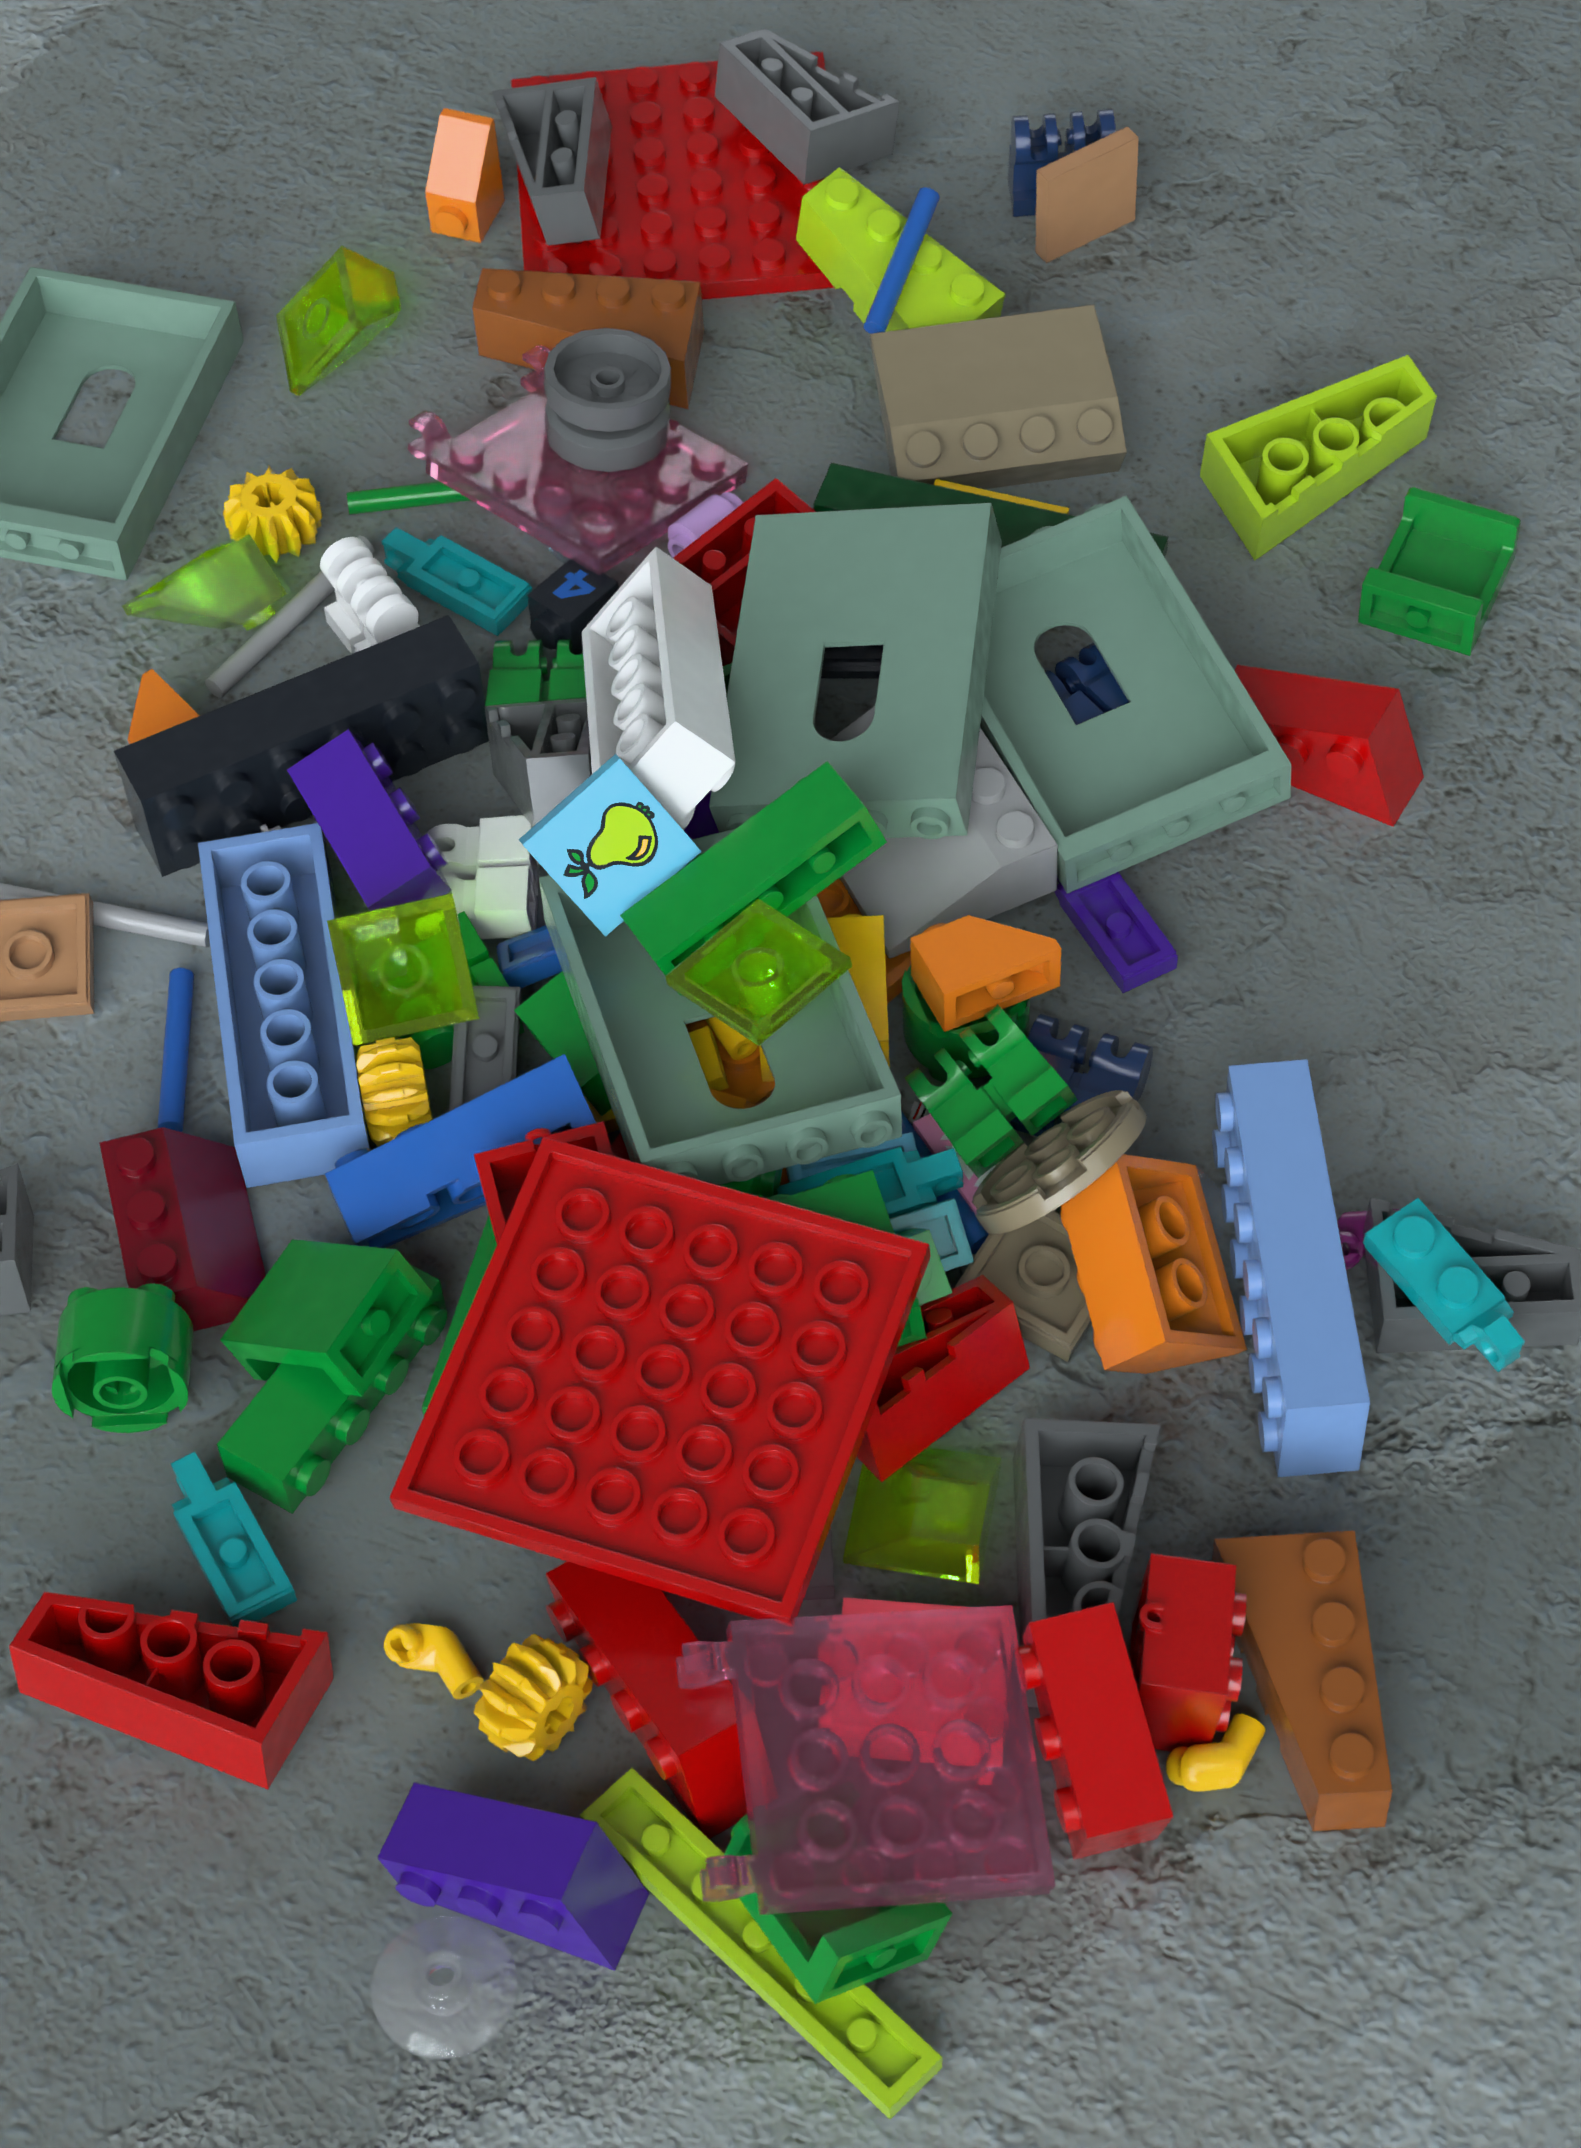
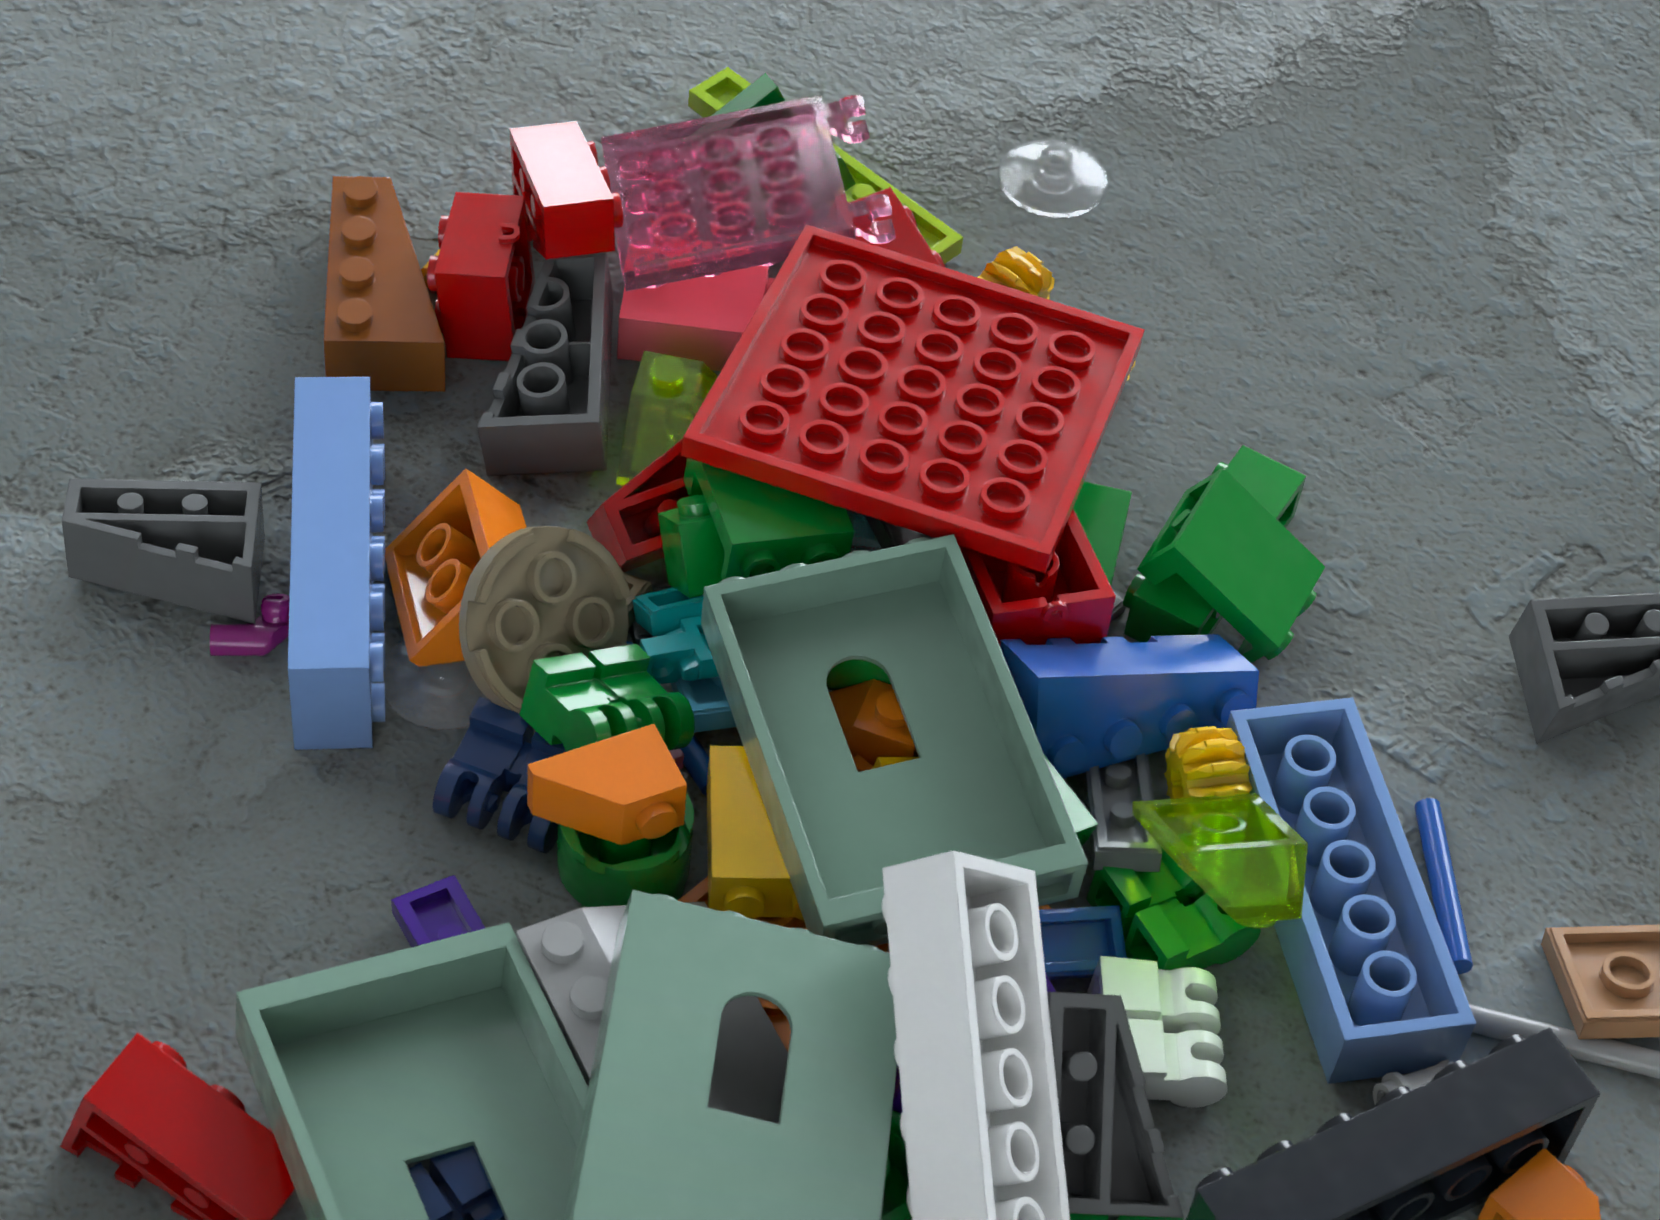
camera: 170 degrees right, 5 degrees down
(123, 1357) = (1408, 552): green brick -> none
(175, 1681) = (1299, 329): red wedge -> none
(184, 1221) = (1401, 676): dark red slope -> none
(229, 1545) = (1273, 428): teal hinge -> none
(370, 823) = (1283, 1034): dark purple wedge -> none
(516, 1870) = (1014, 198): dark purple wedge -> none
(609, 844) = (1024, 834): medium azure tile -> none
(758, 971) = (843, 709): clear neon green slope -> none
(774, 856) = (852, 821): green brick -> none
(1445, 1283) = (199, 488): teal hinge -> none

